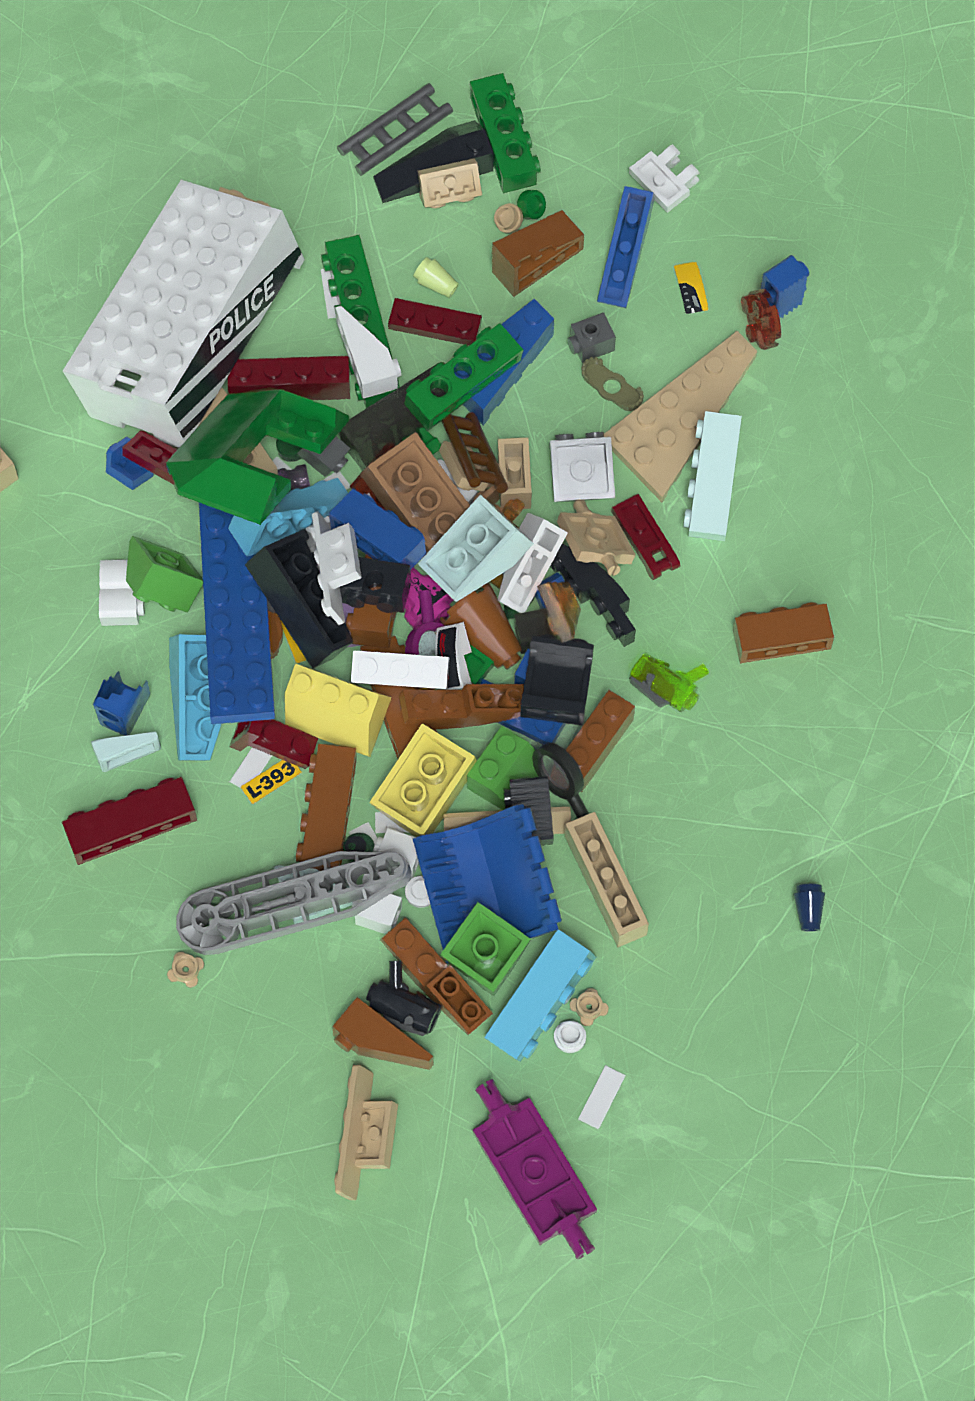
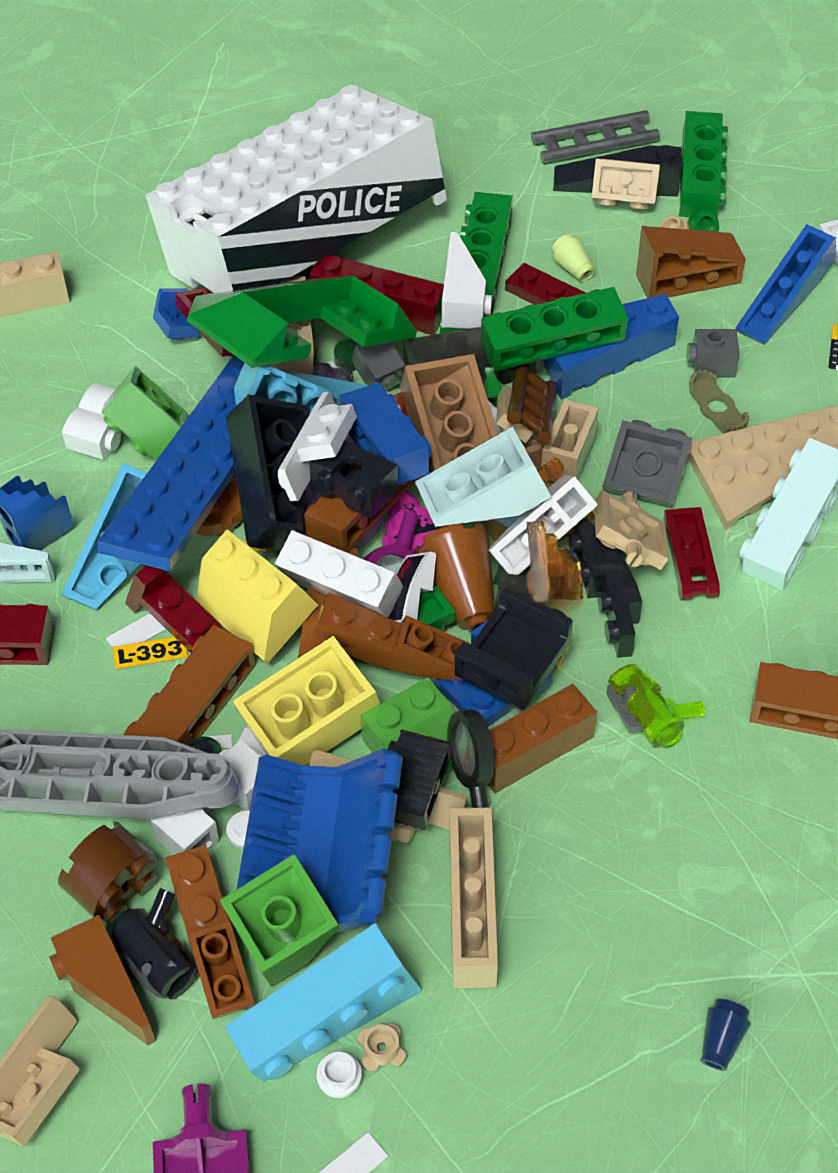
camera: 25 degrees right, 15 degrees down
(345, 962) = (109, 871): none -> reddish brown brick

